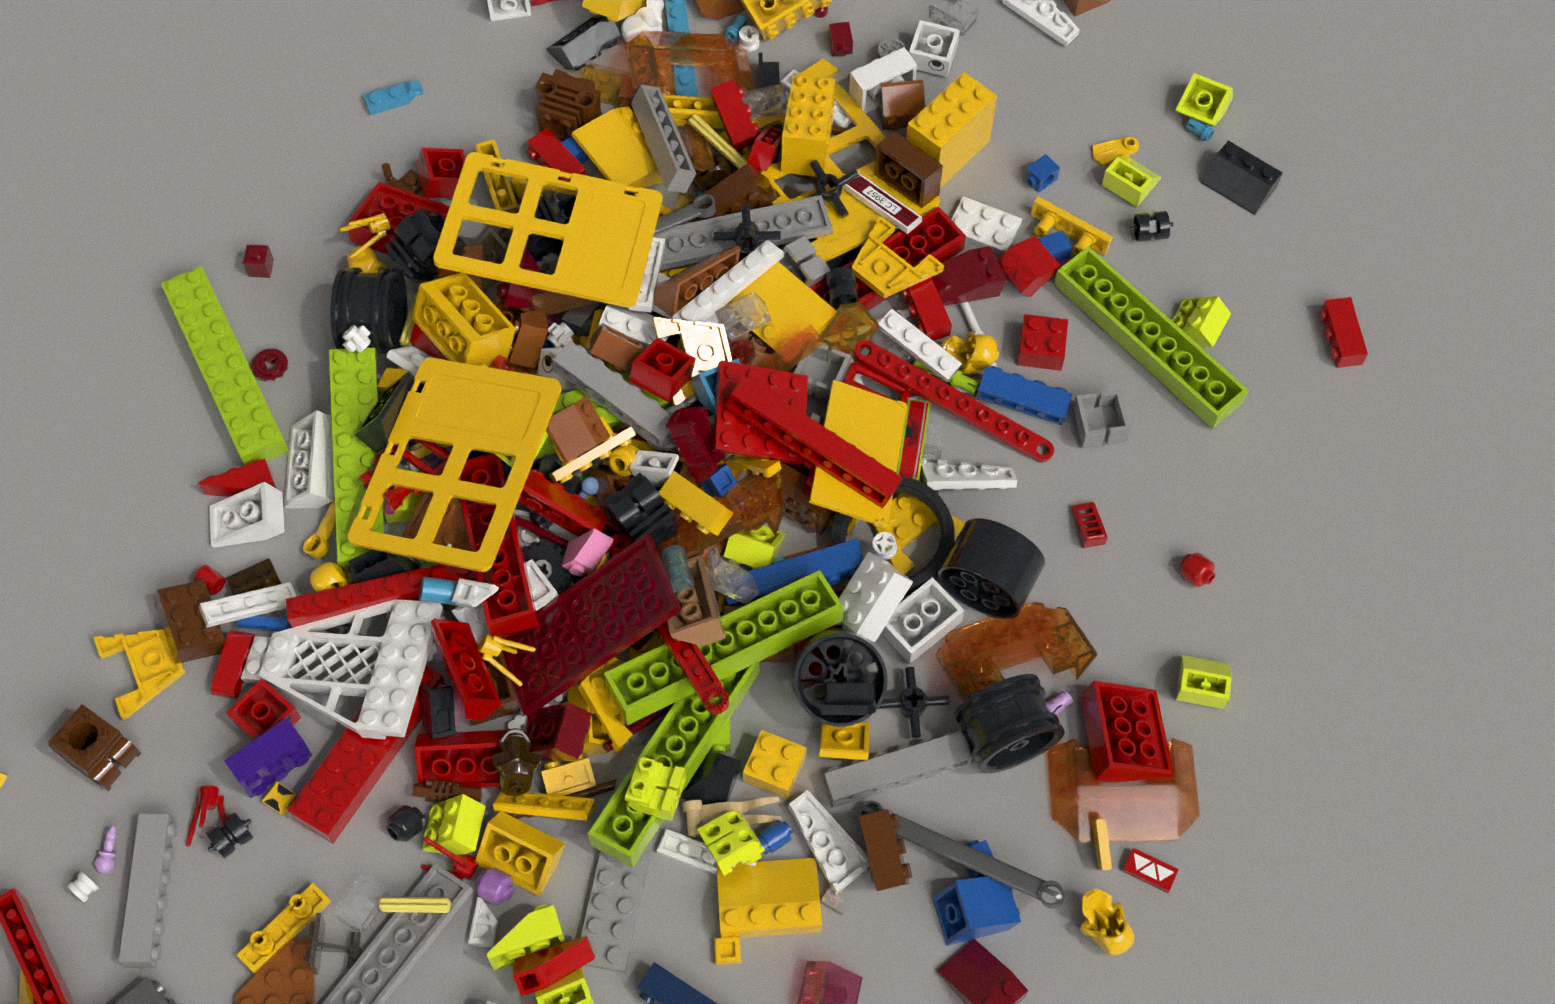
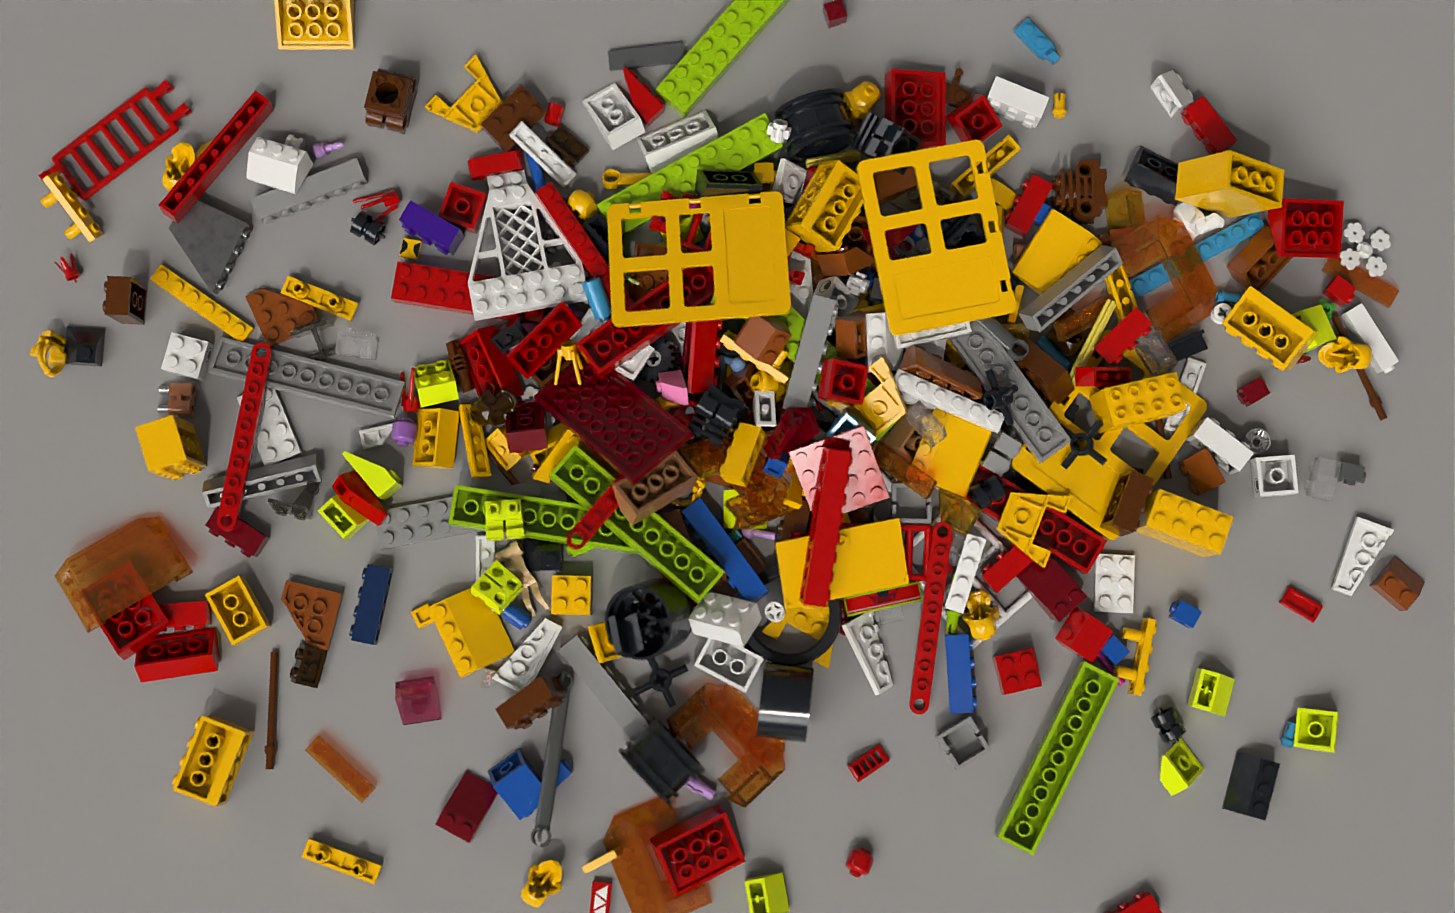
camera: 70 degrees right, 20 degrees up
(96, 910) = (277, 165): none -> white slope
(198, 463) = (645, 56): none -> dark grey tile
(271, 356) = (745, 60): dark red gear -> none
(377, 224) = (896, 93): yellow plant -> none
(404, 823) = (425, 347): black head -> none
(415, 904) = (366, 383): light yellow axle -> none
(446, 125) = (1016, 102): none -> white brick
(472, 101) = (1059, 106): none -> yellow pin
(473, 592) = (598, 320): white tile -> none
(677, 567) = (676, 465): clear light blue brick -> none
(730, 578) = (696, 505): clear slope -> none
(742, 350) = (896, 434): clear red plate -> none
(783, 549) = (750, 533): none -> lavender bar
(821, 69) = (1207, 386): yellow tile -> none
(883, 203) = (1089, 495): tile -> none
(1071, 76) = (1301, 604): none -> red tile
(1108, 151) = (1238, 667): yellow piece -> none
(1202, 319) = (1090, 793): neon yellow slope -> none
(1204, 233) = (1179, 768): none -> neon yellow slope

